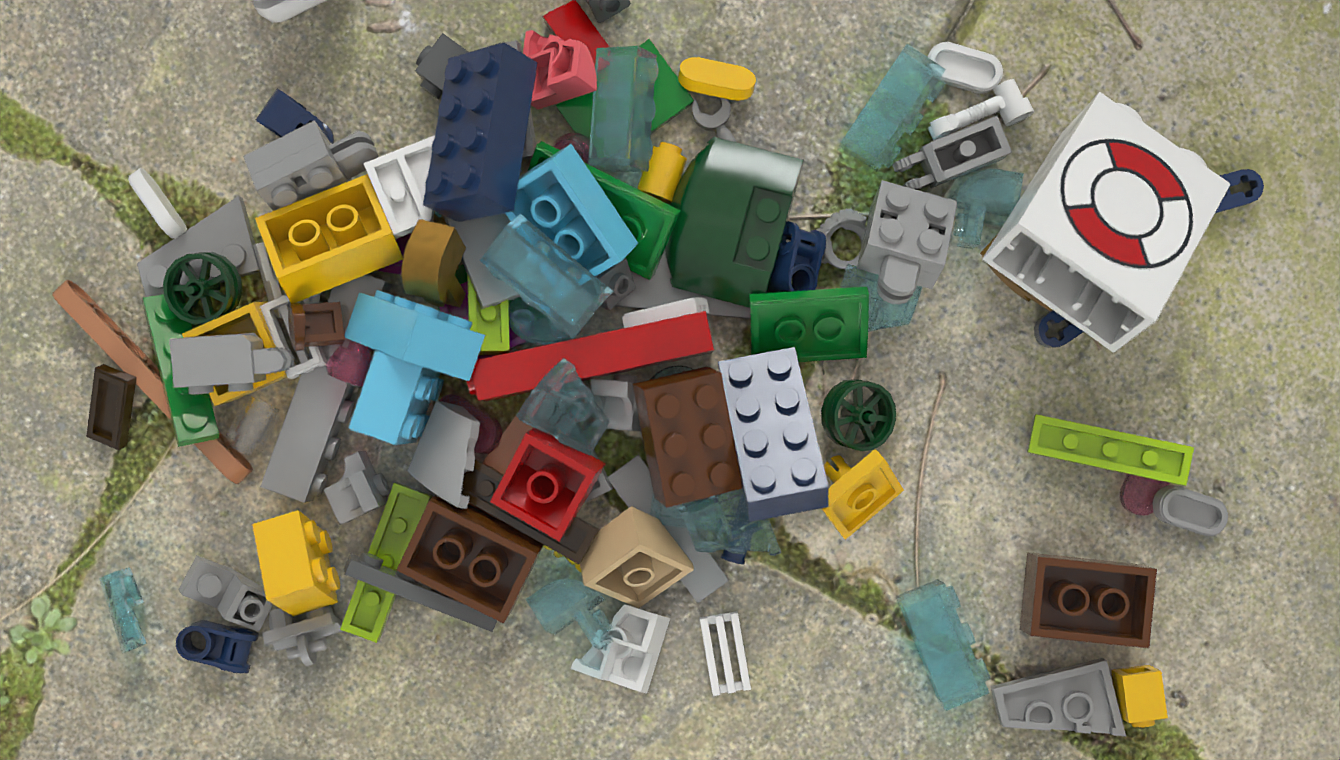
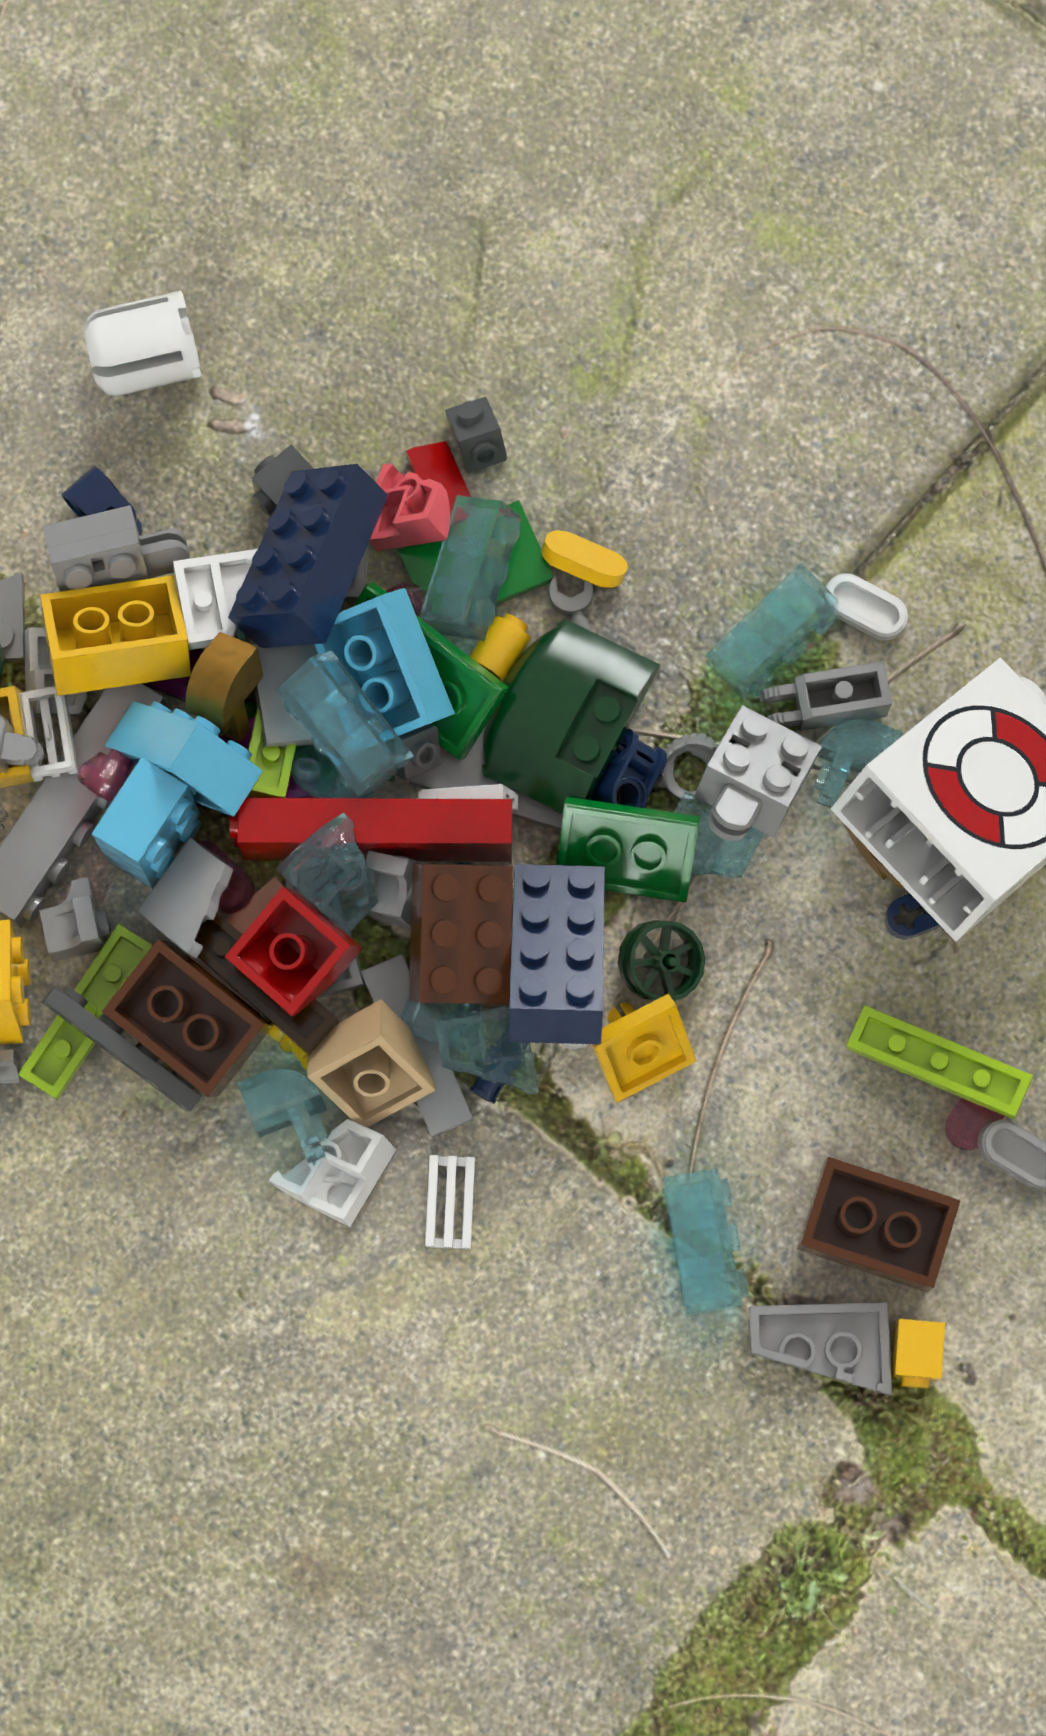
camera: 10 degrees right, 10 degrees down
(315, 324) = (76, 724): reddish brown tile -> none
(1007, 102) = (905, 654): white brick -> none

